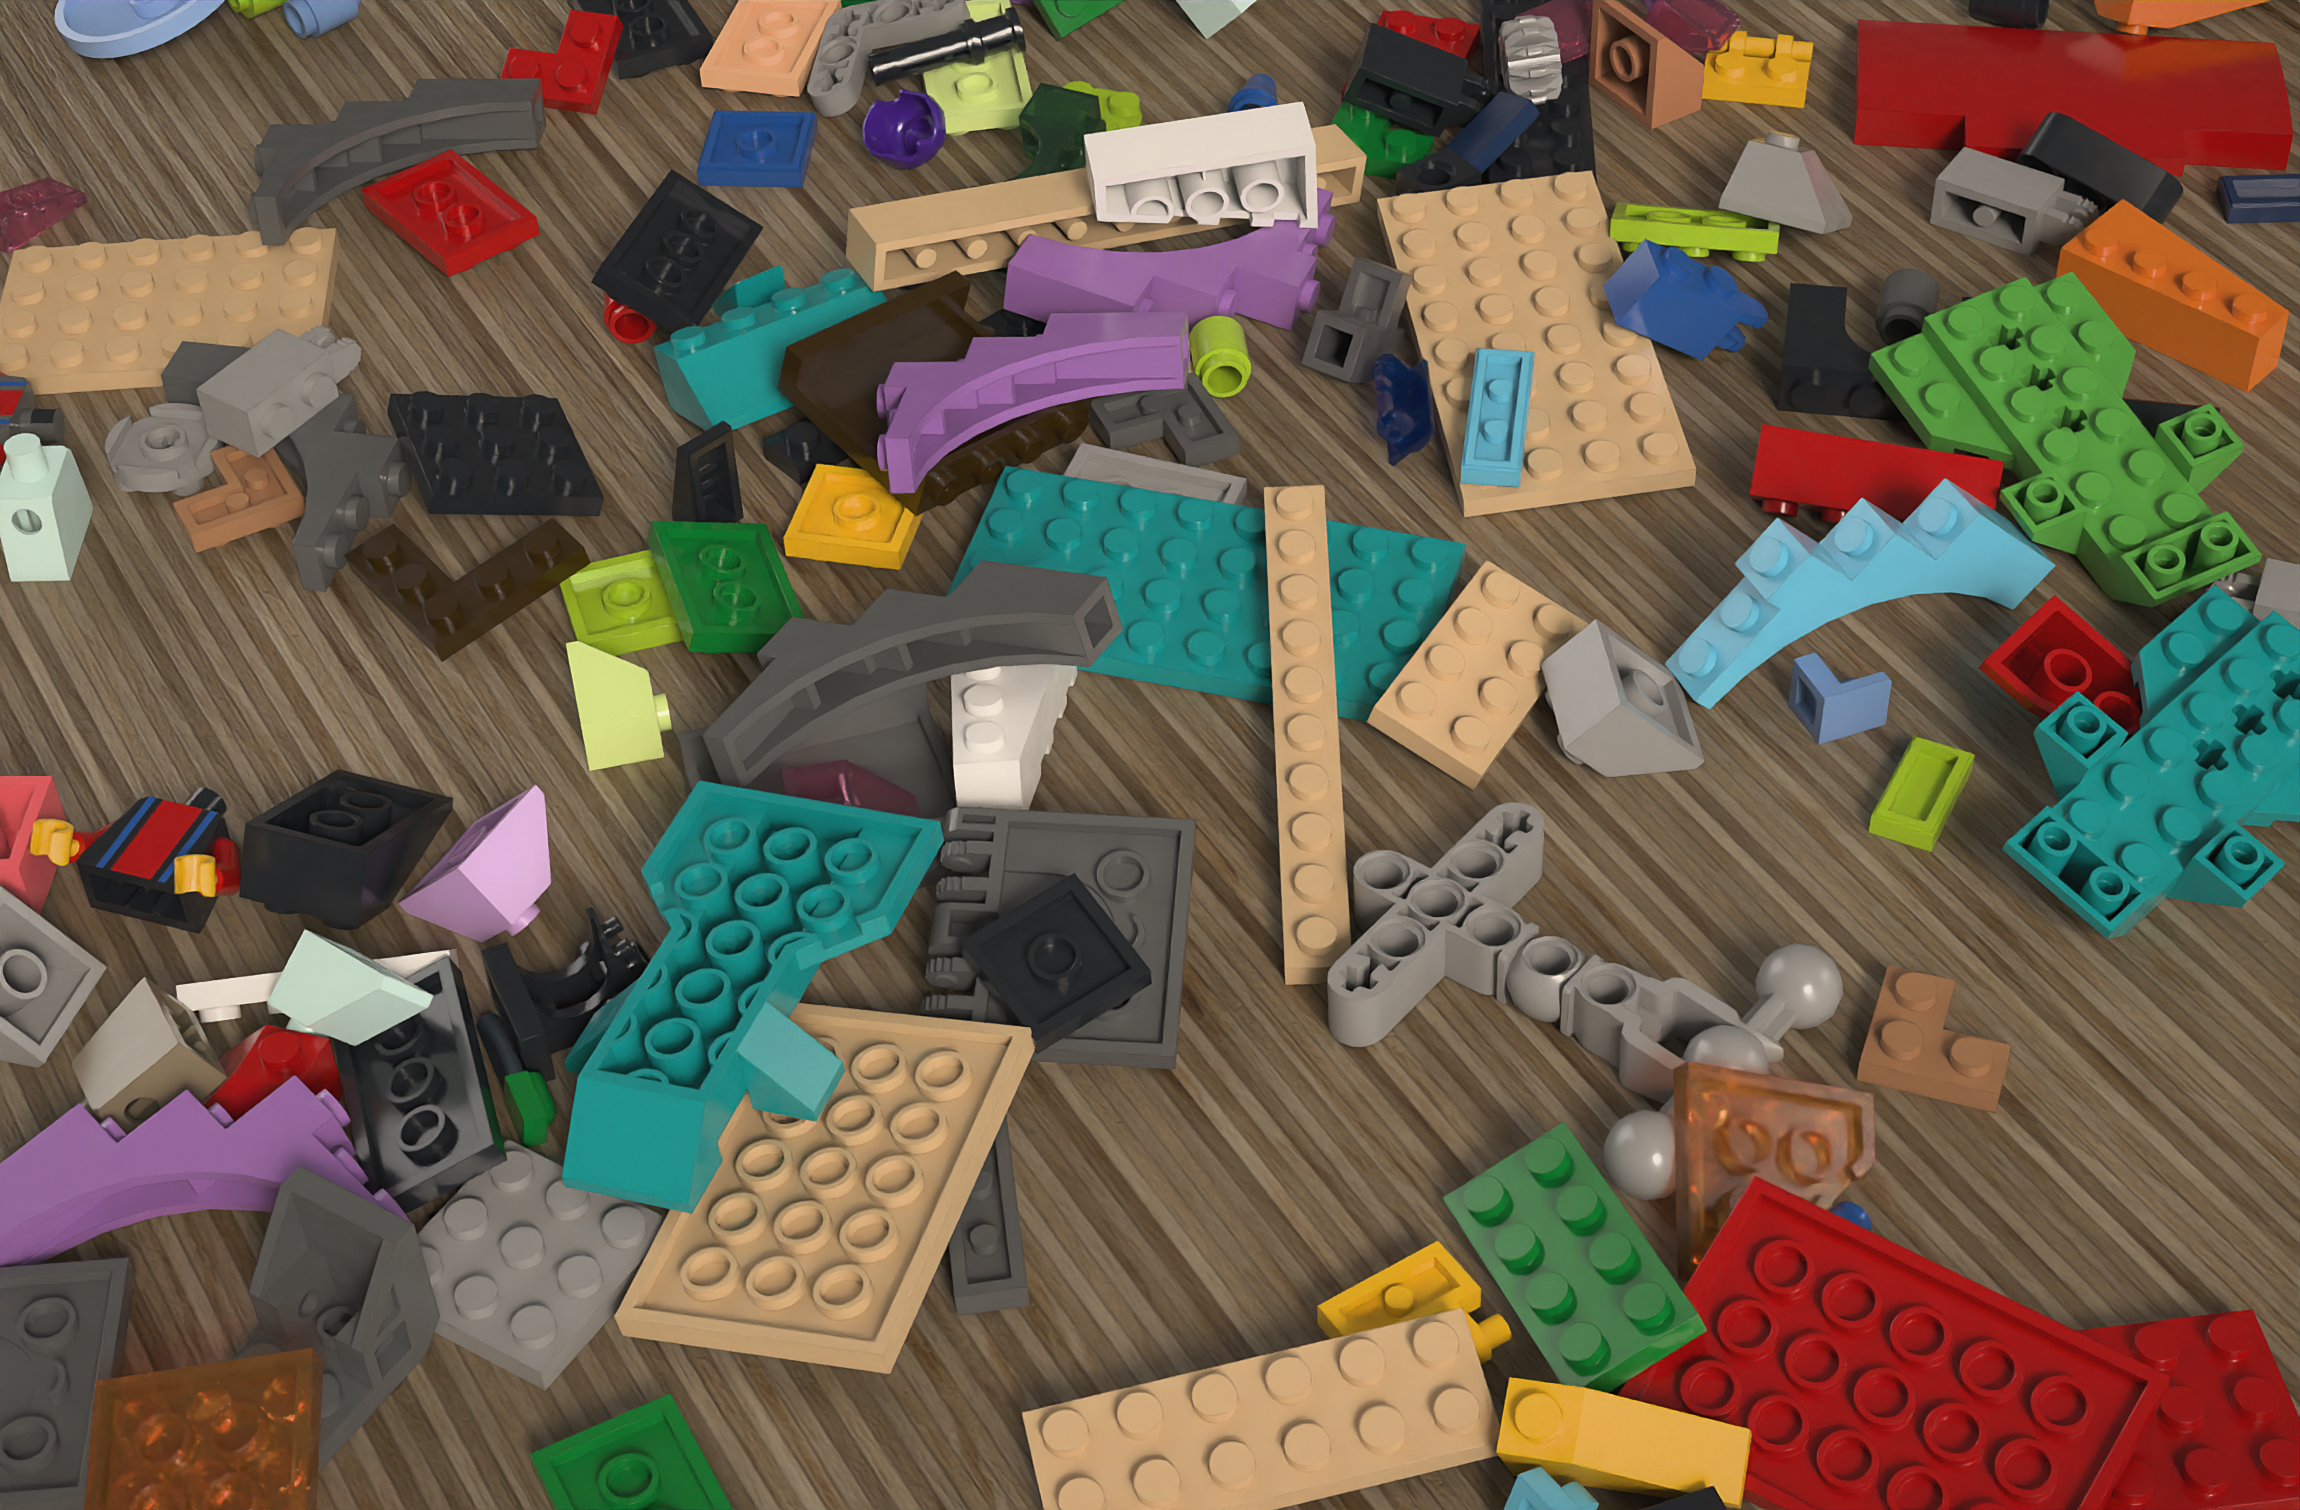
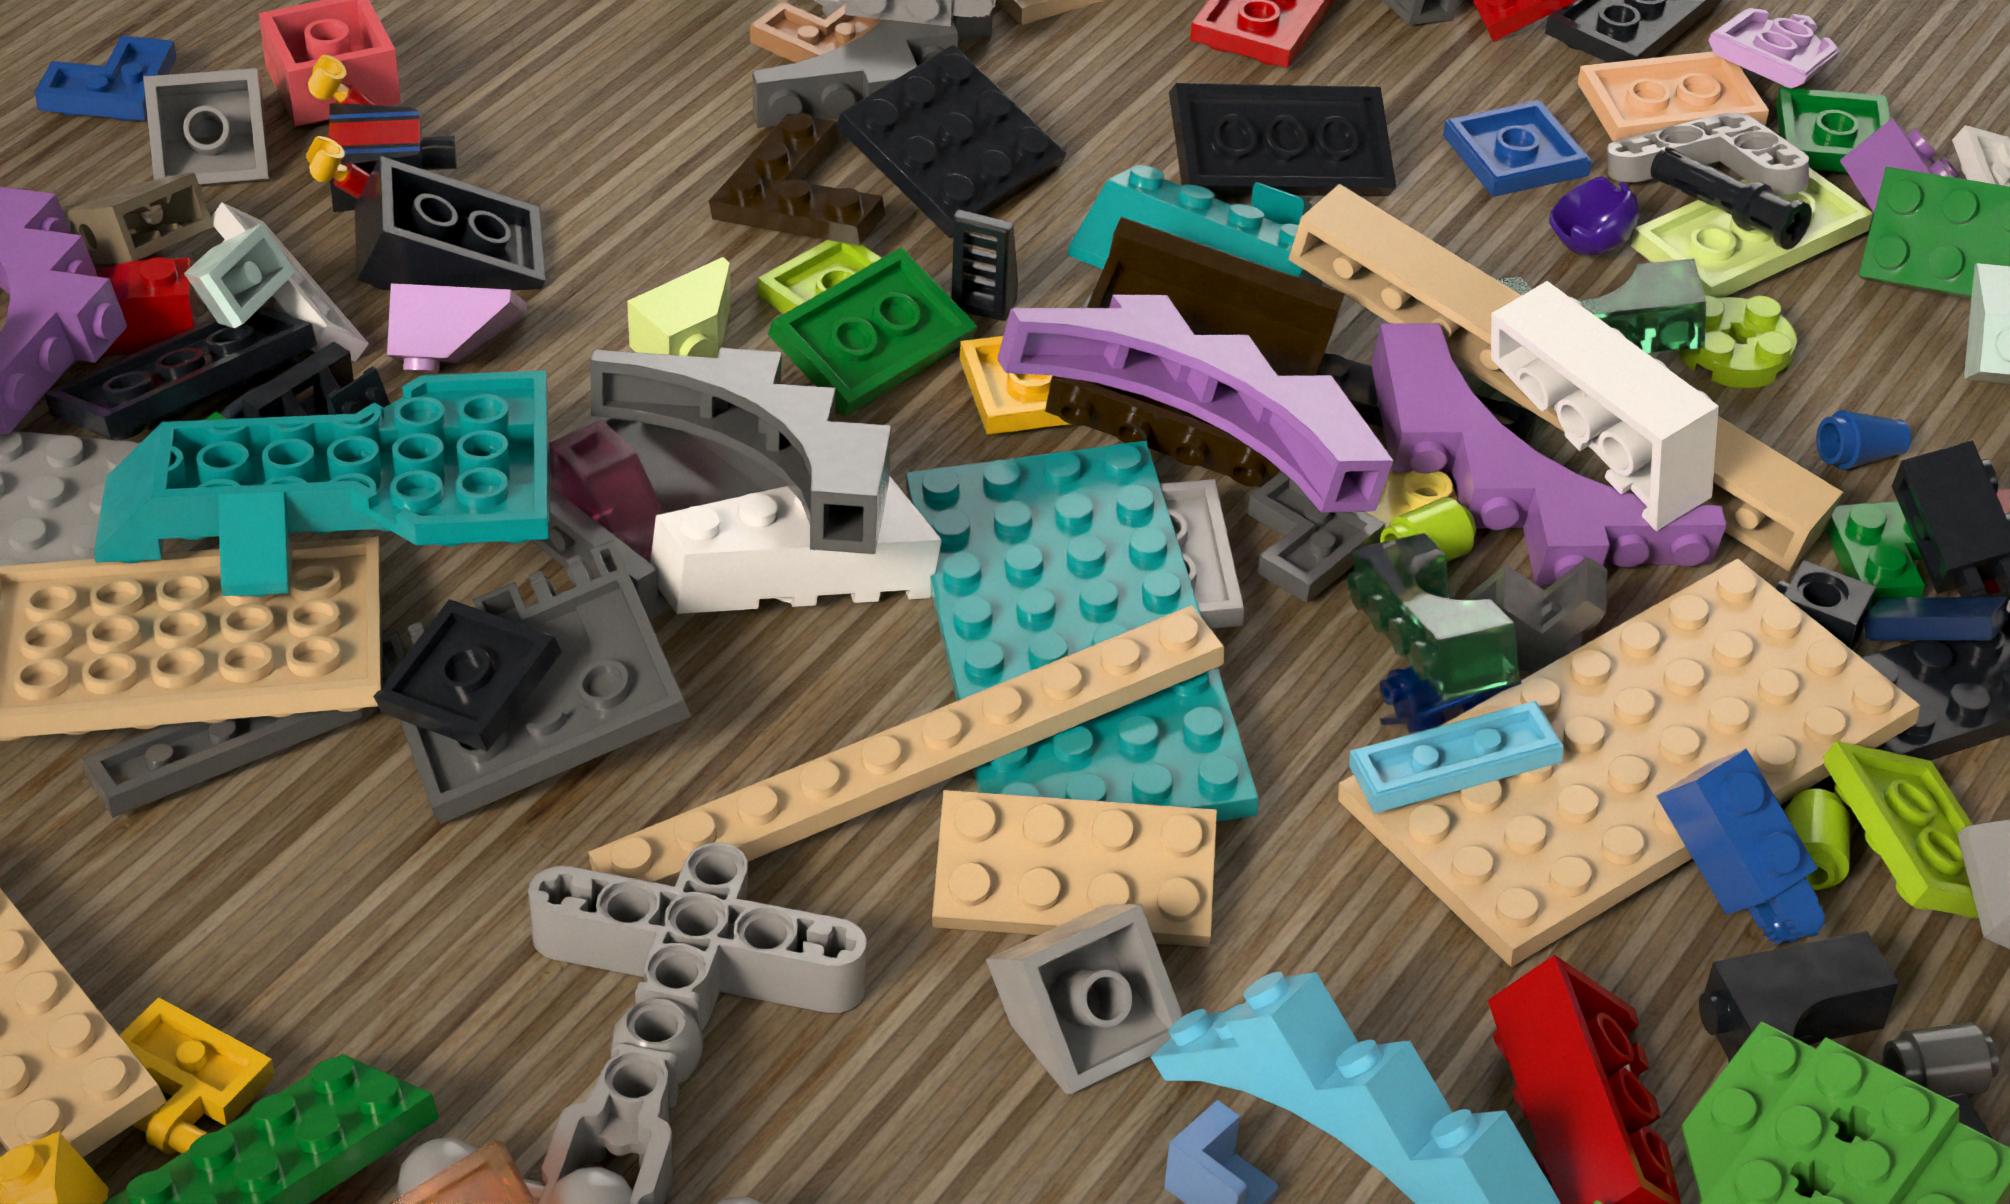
camera: 60 degrees right, 0 degrees up
(1413, 356) = (1449, 642): none -> clear green arch

